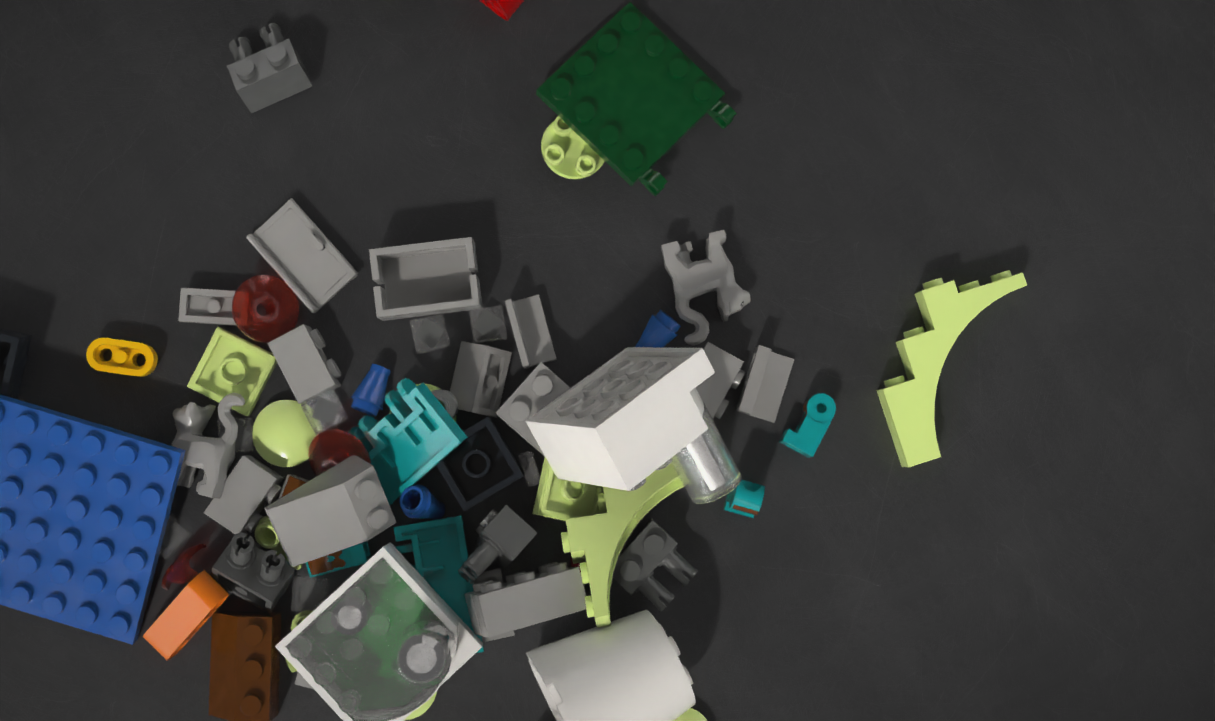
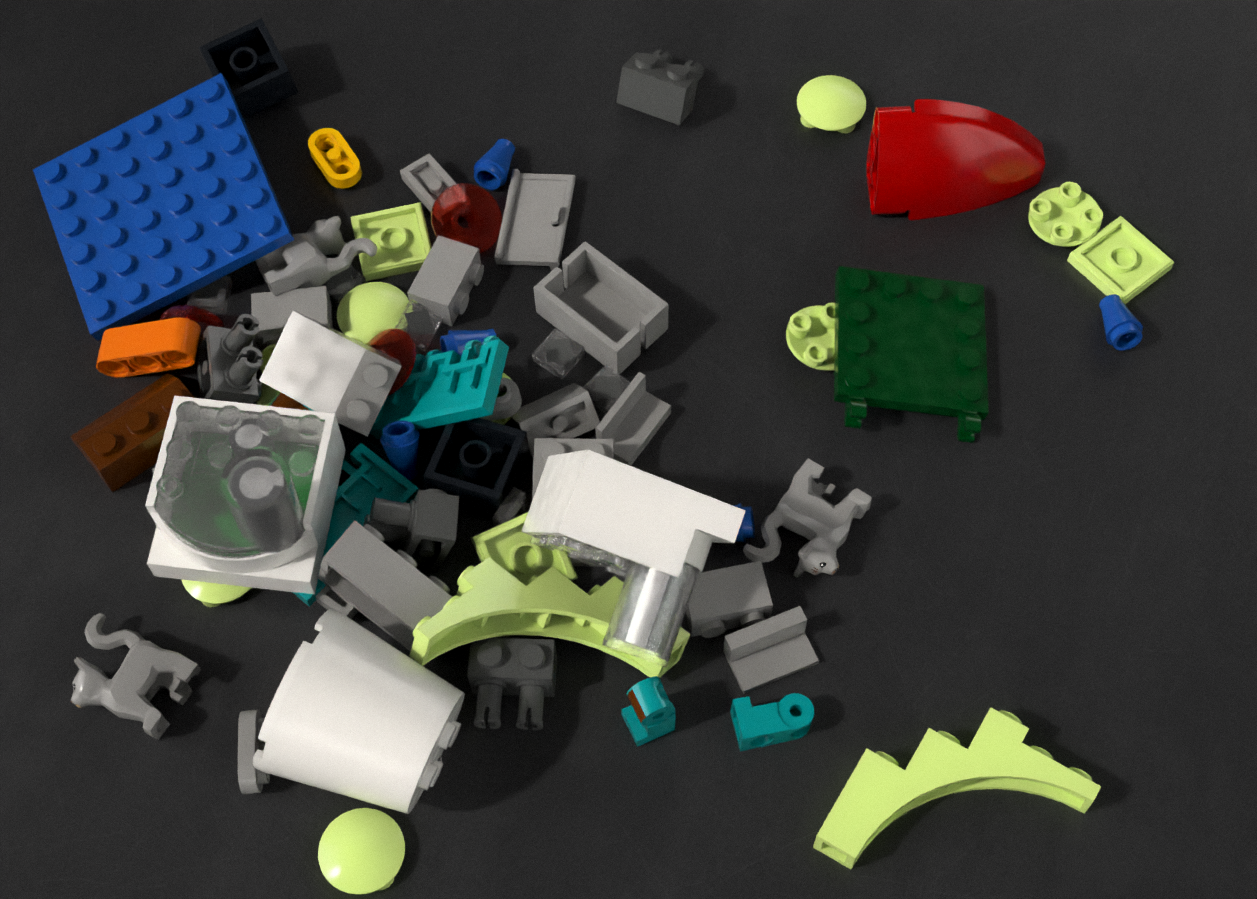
camera: 55 degrees right, 25 degrees down
(232, 249) = (493, 167): none -> blue cone

